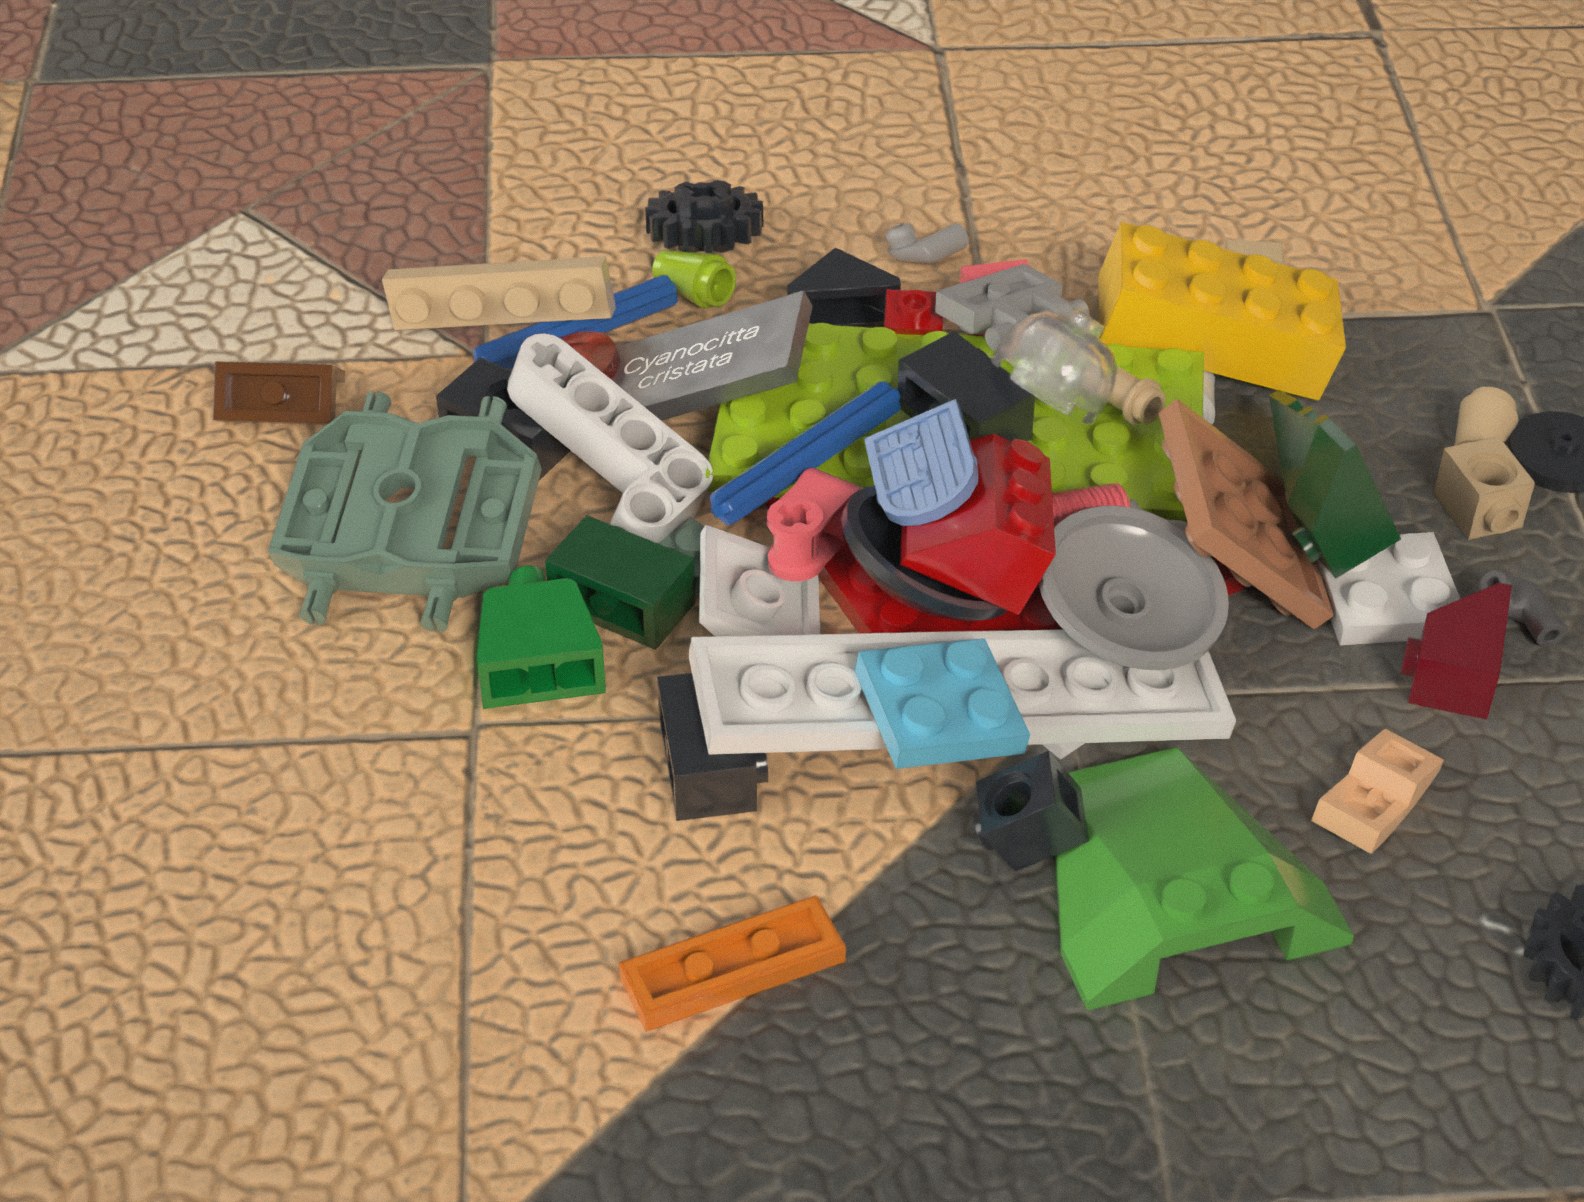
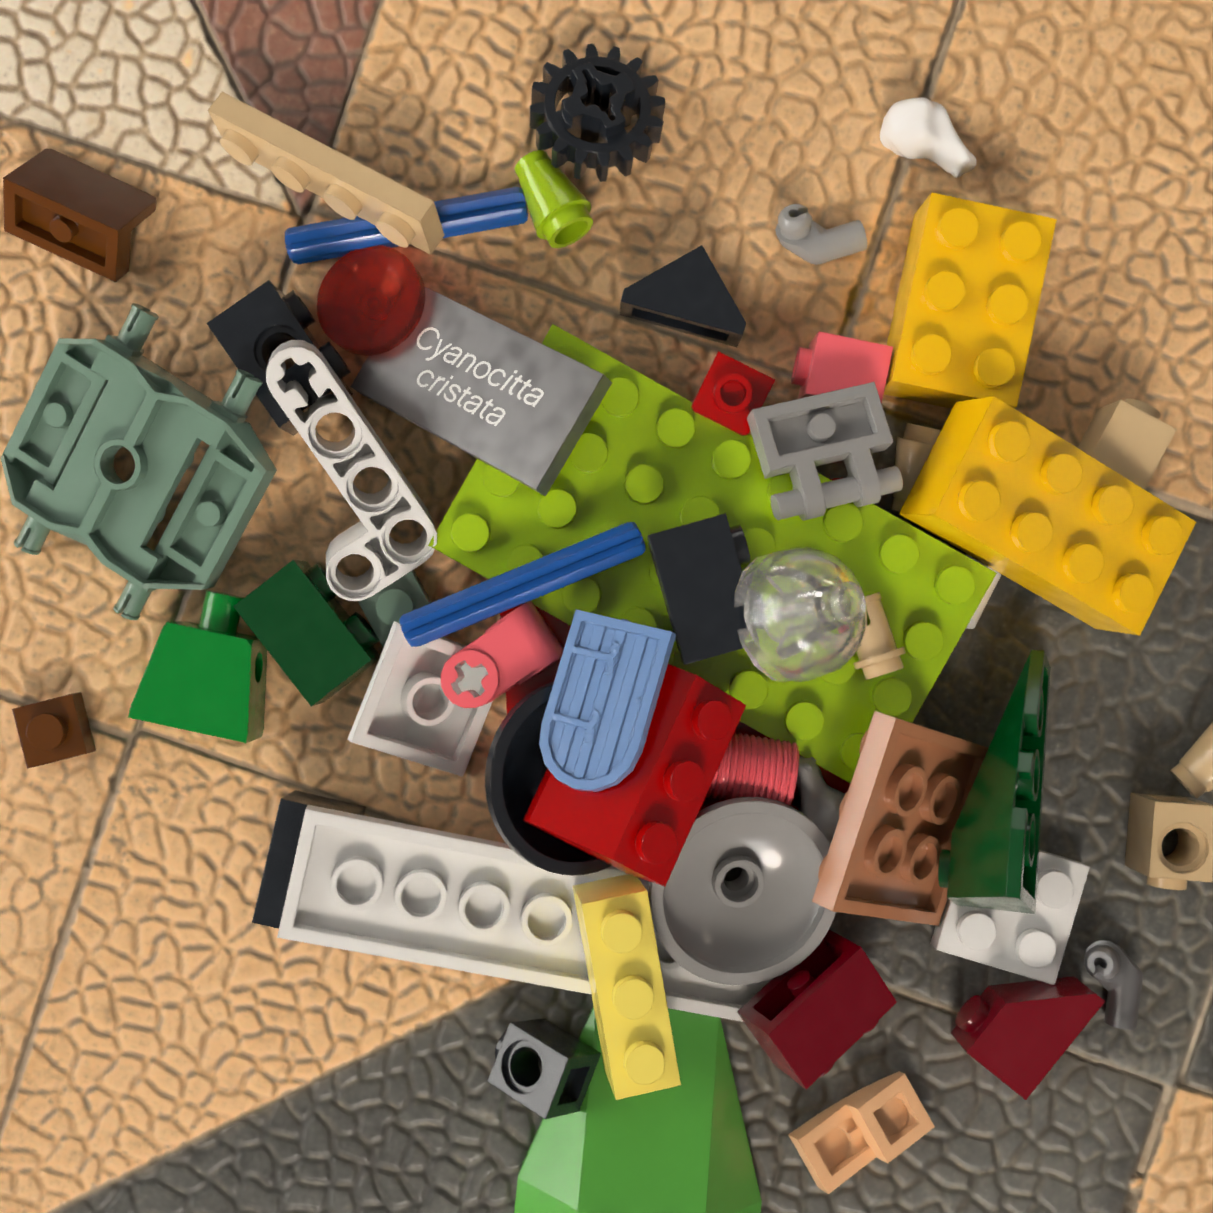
camera: 20 degrees right, 45 degrees up
(393, 739) = (54, 730): none -> reddish brown plate
(731, 962) = (250, 1084): orange tile -> none
(941, 703) = (503, 960): medium azure plate -> none
(971, 172) = (923, 130): none -> white animal
(1060, 220) = (967, 302): none -> yellow brick
(1070, 677) = (626, 985): none -> light yellow brick
(1263, 677) = (818, 1009): none -> dark red brick

